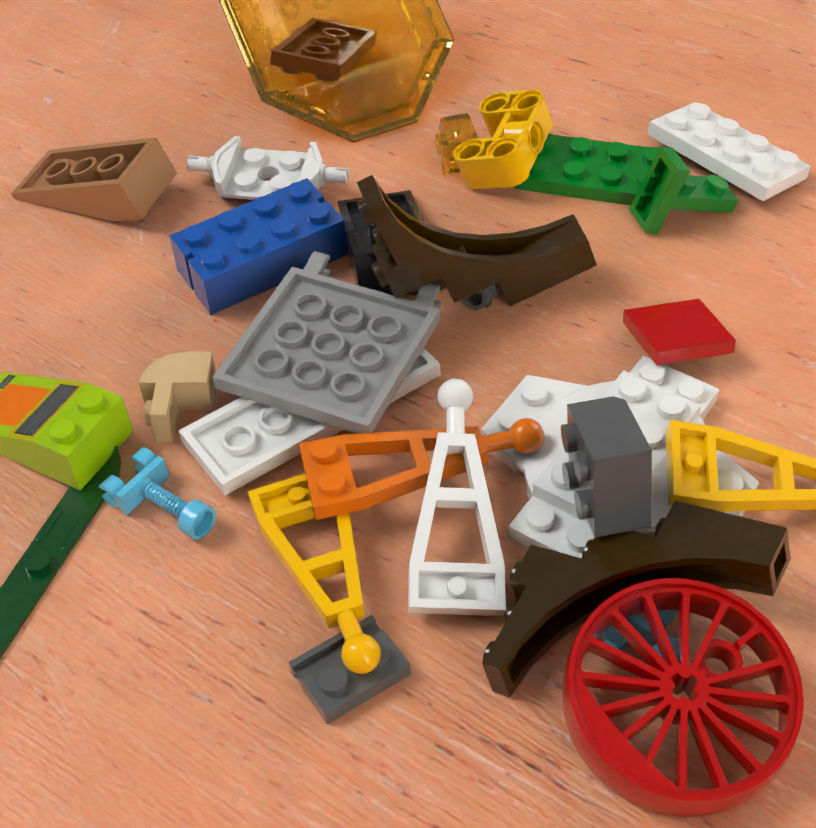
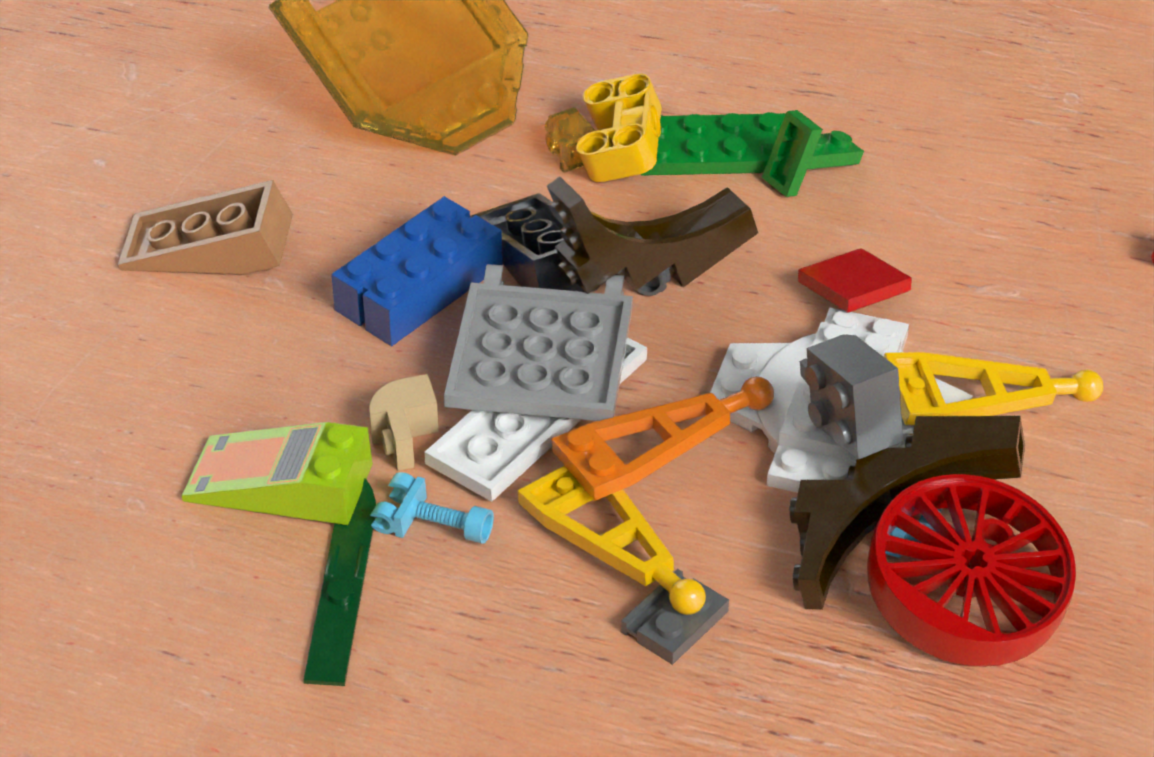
camera: 20 degrees left, 5 degrees down
(242, 171) = (360, 200): white plate -> none
(323, 49) = (401, 63): reddish brown plate -> none
(447, 585) = (736, 530): white plate -> none
(729, 150) = (838, 104): white plate -> none

